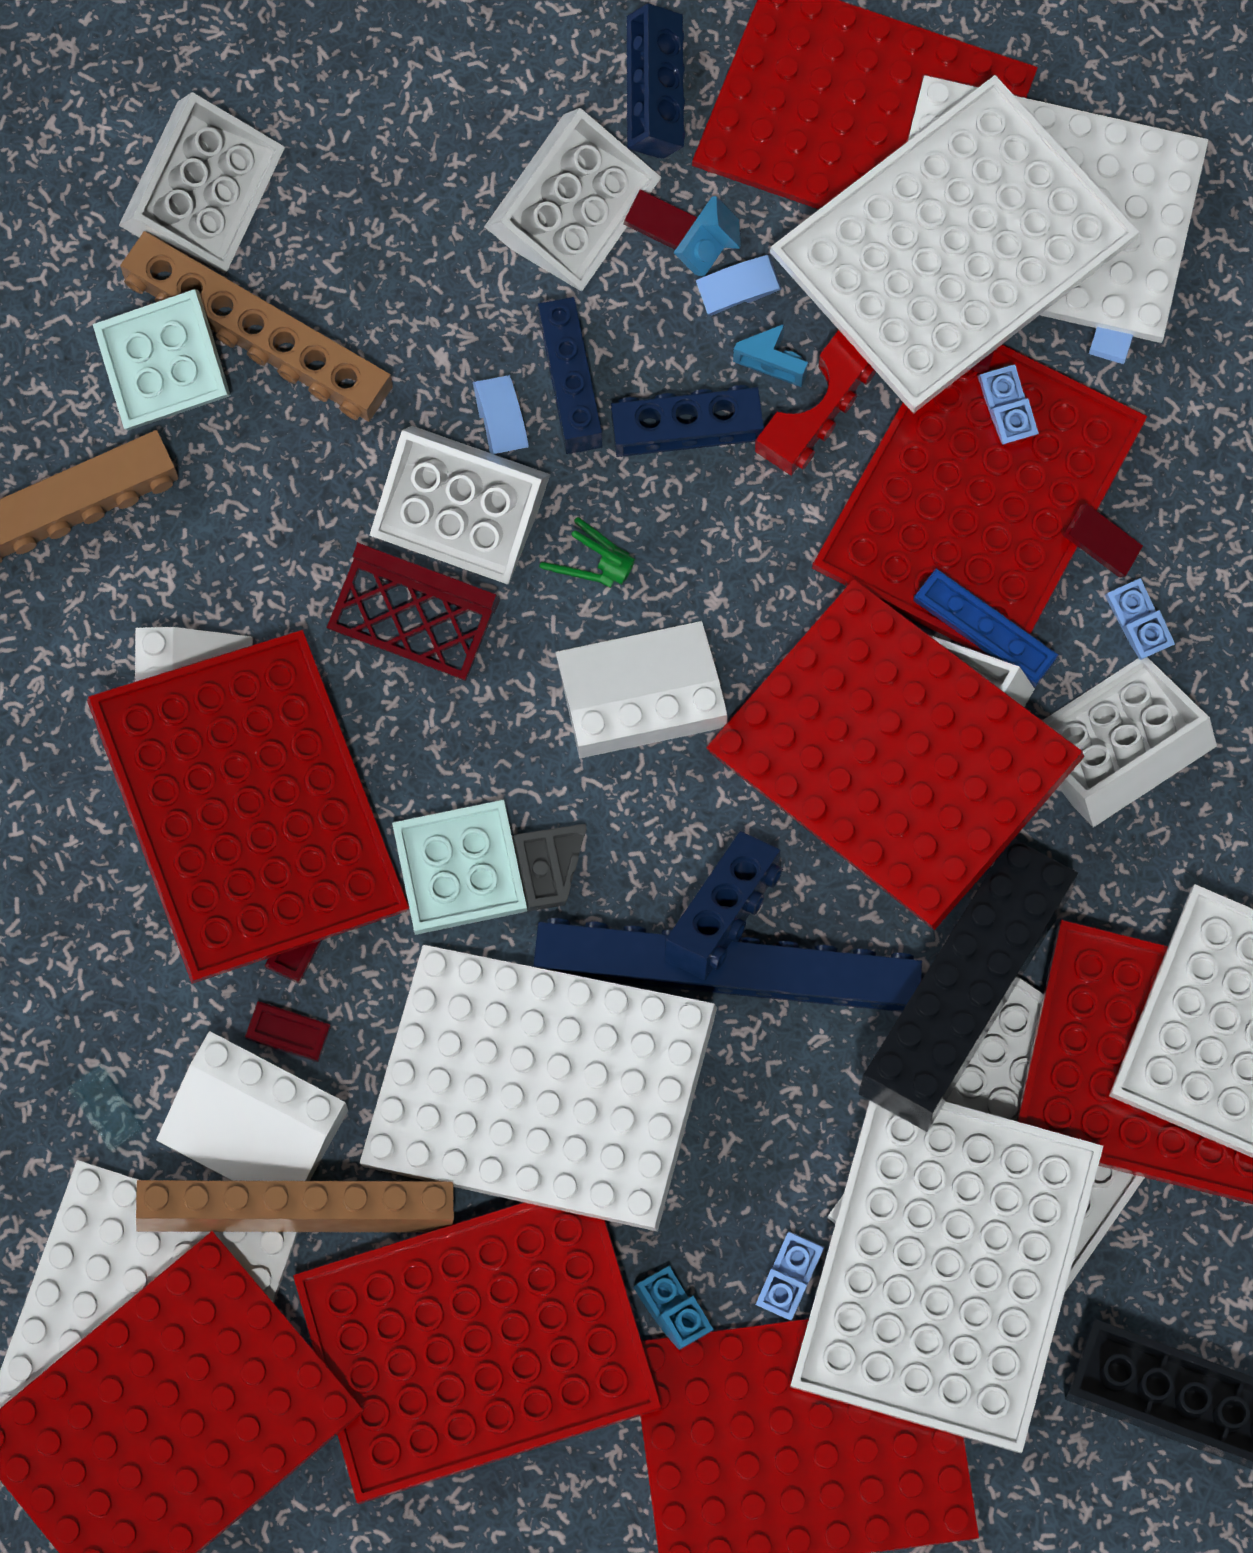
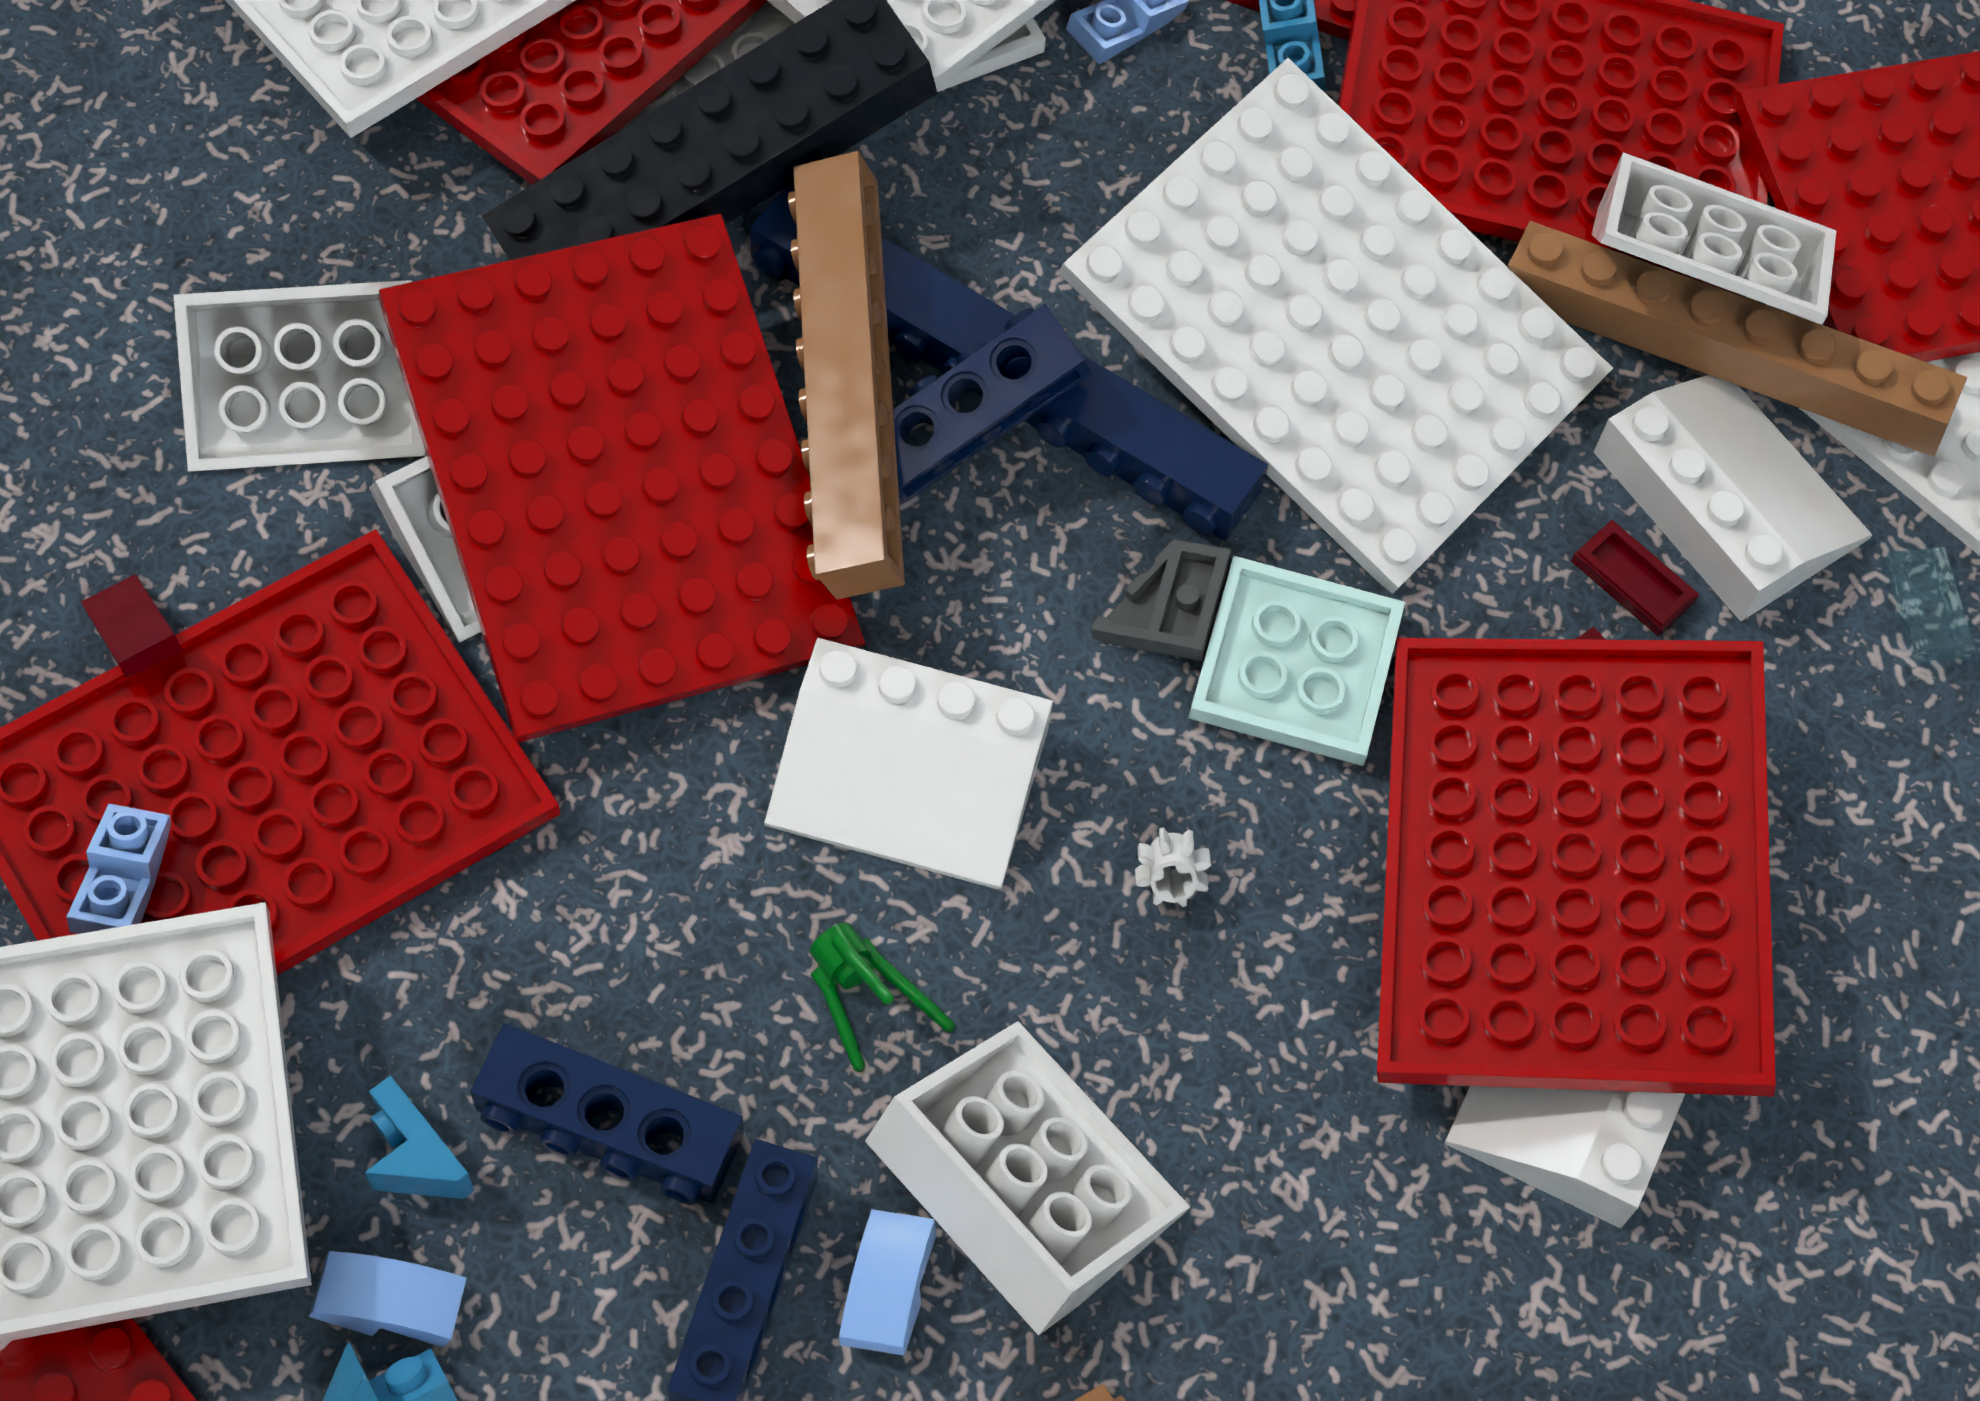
camera: 160 degrees left, 10 degrees down
(327, 1232) = (1718, 237): none -> white slope
(423, 581) = (1137, 1069): dark red fence -> none
(467, 700) = (1176, 851): none -> white gear
(790, 437) = (456, 1004): red arch -> none
(803, 876) = (846, 378): none -> medium nougat brick
(984, 626) = (379, 589): blue tile -> none
(1139, 619) = (160, 514): light blue slope -> none

